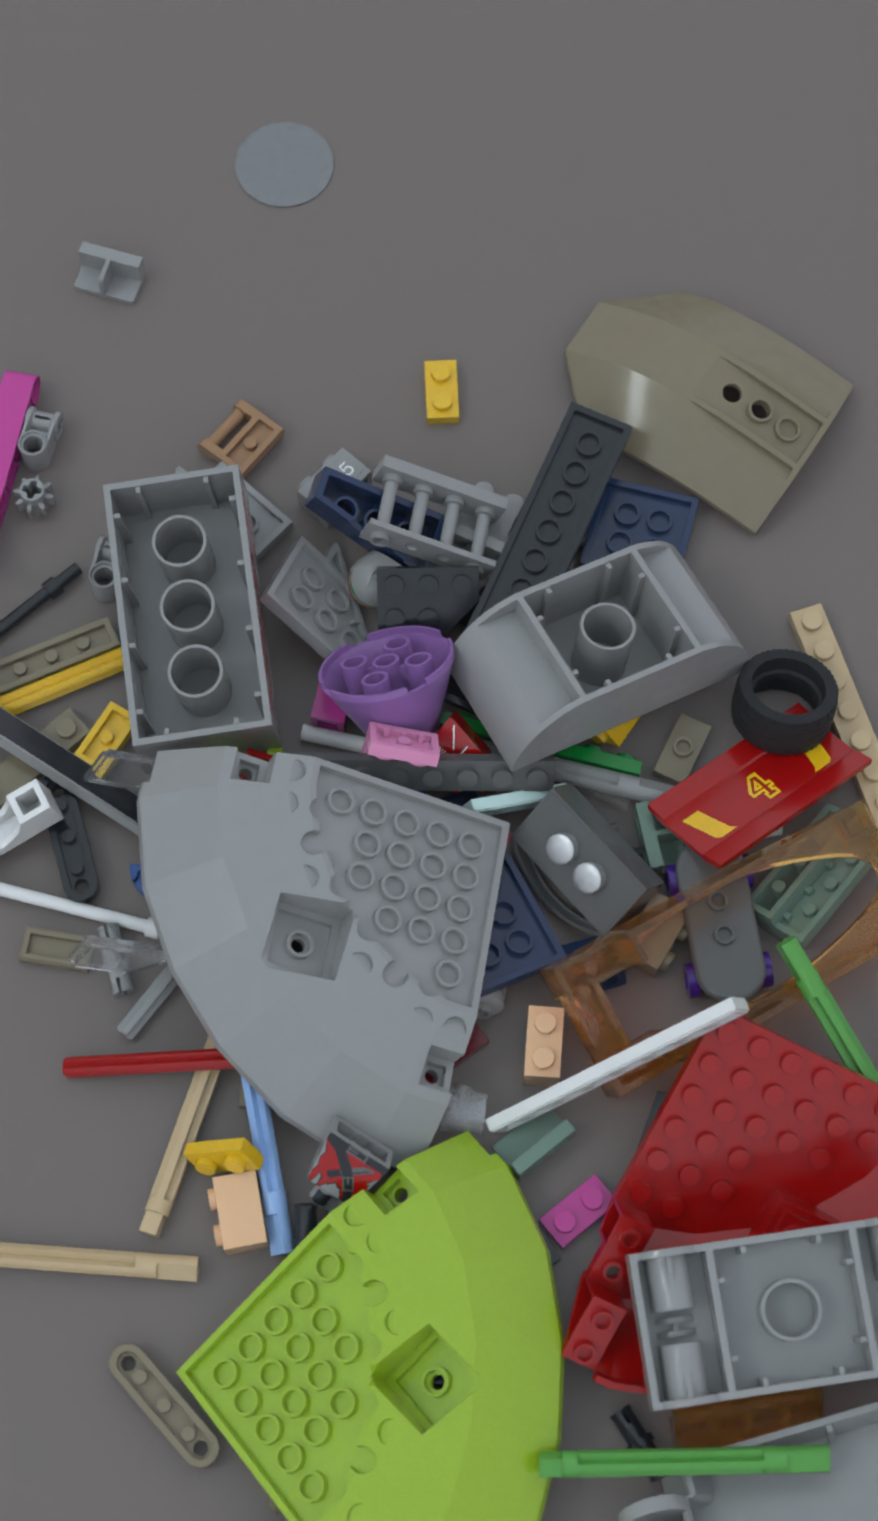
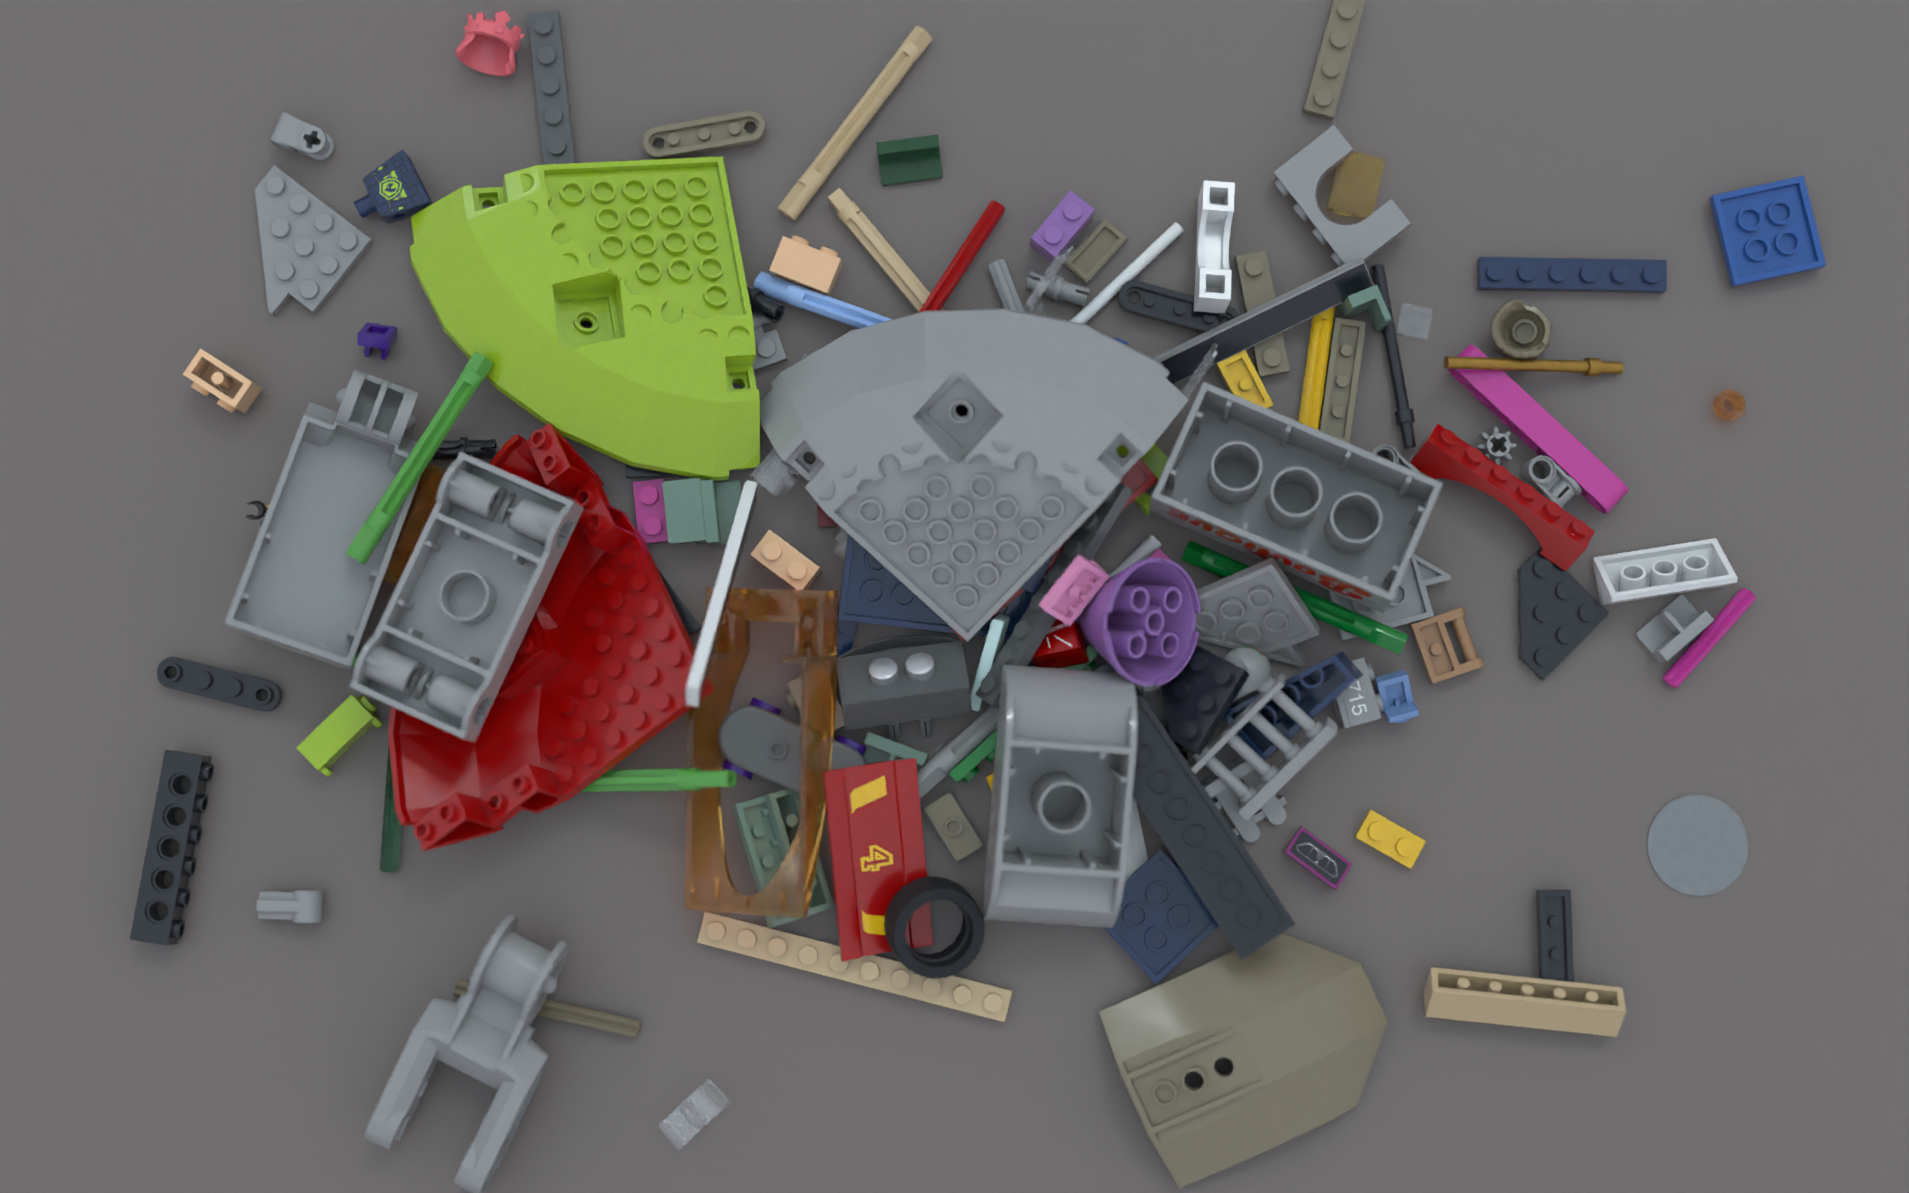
camera: 125 degrees right, 15 degrees up
(52, 989) = (1062, 226): none -> medium lavender brick
(65, 306) = (1662, 571): none -> white slope
(69, 526) = (1558, 532): none -> red arch
(70, 1180) = (909, 160): none -> dark green panel
(72, 241) = (1709, 638): none -> dark pink axle
(156, 374) = (1552, 614): none -> black plate
(223, 1156) = (845, 280): yellow plate -> none
(276, 549) = (1319, 607): none -> green piece
(311, 452) = (1396, 697): none -> medium blue bracket
(346, 1163) = (784, 358): torso -> none
(437, 221) = (1555, 935): none -> black plate
(498, 437) = (1317, 858): none -> slope
(509, 212) = (1524, 1002): none -> tan brick
(558, 1172) = (684, 511): none -> sand green panel

